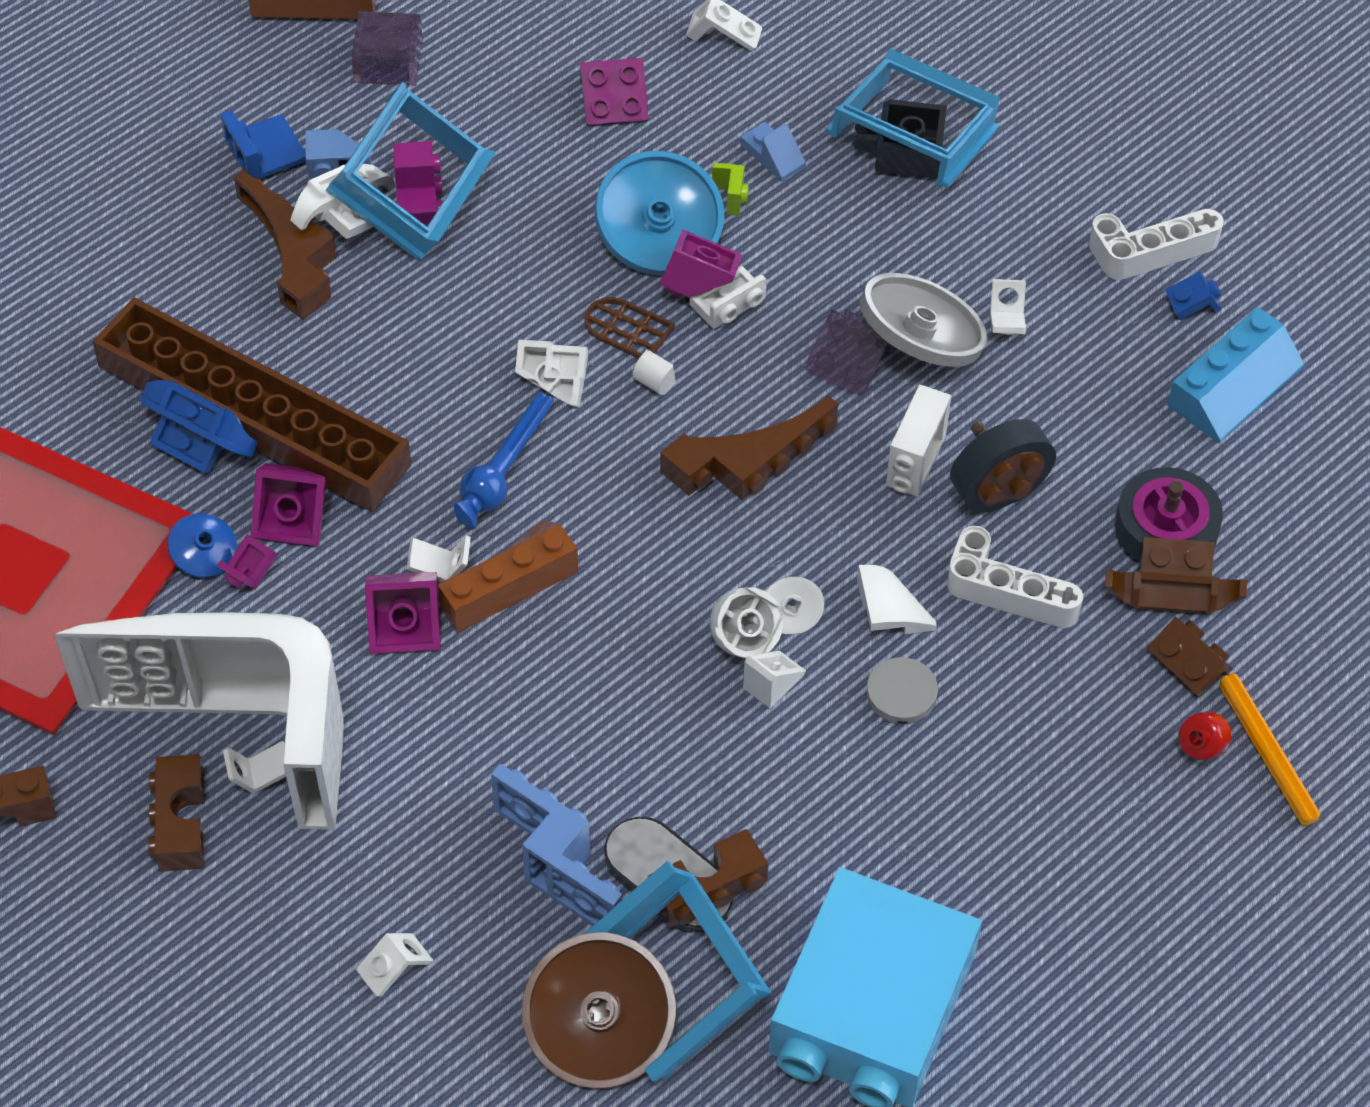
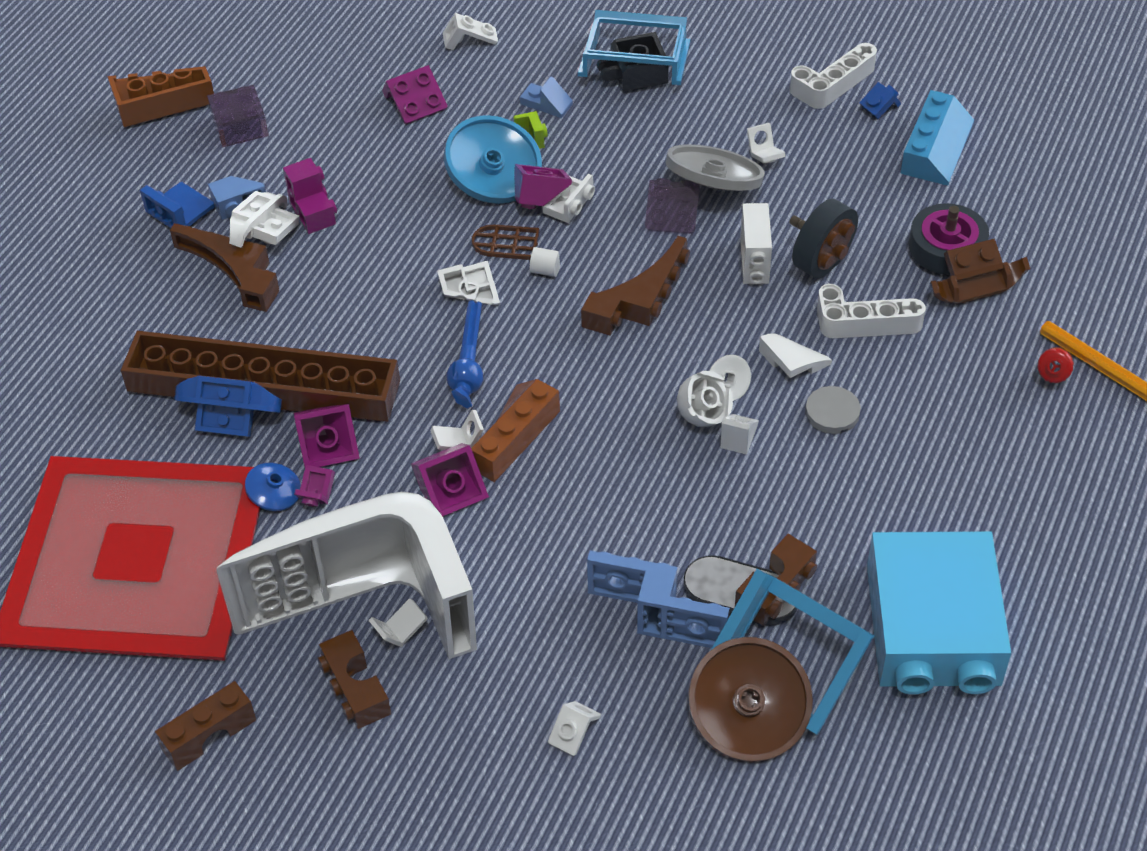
camera: 20 degrees left, 5 degrees down
(381, 210) = (292, 214): dark azure piece -> none
(1188, 656) = (1012, 320): reddish brown bracket -> none

